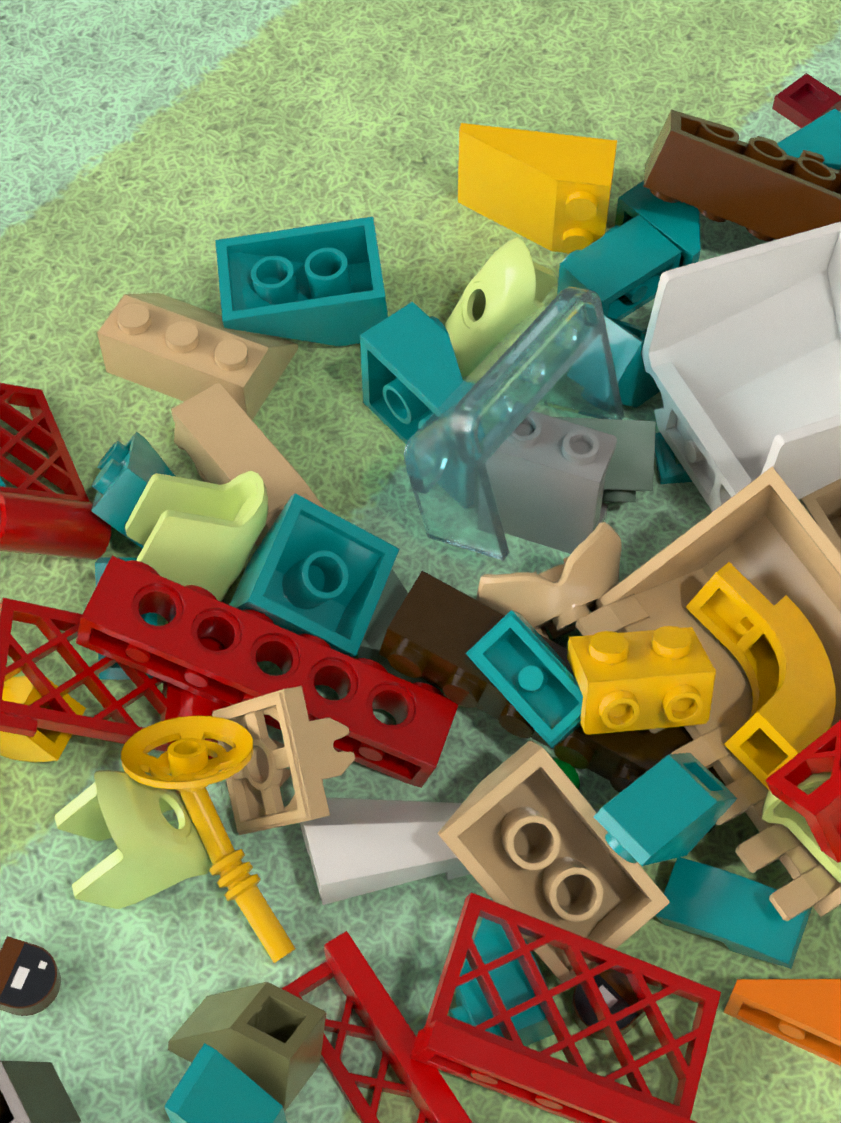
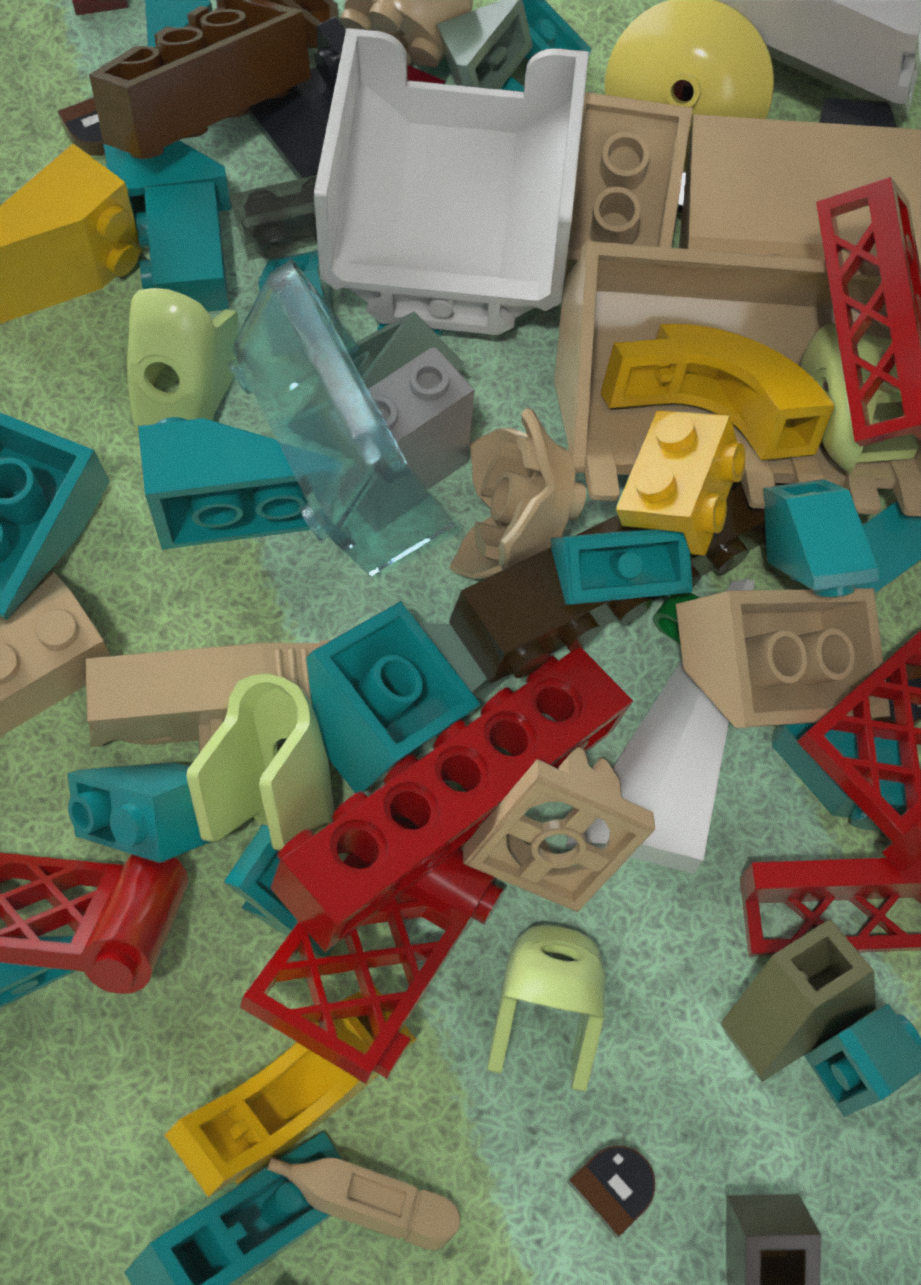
camera: 65 degrees left, 10 degrees up
(190, 775) = (542, 915): yellow dish -> none

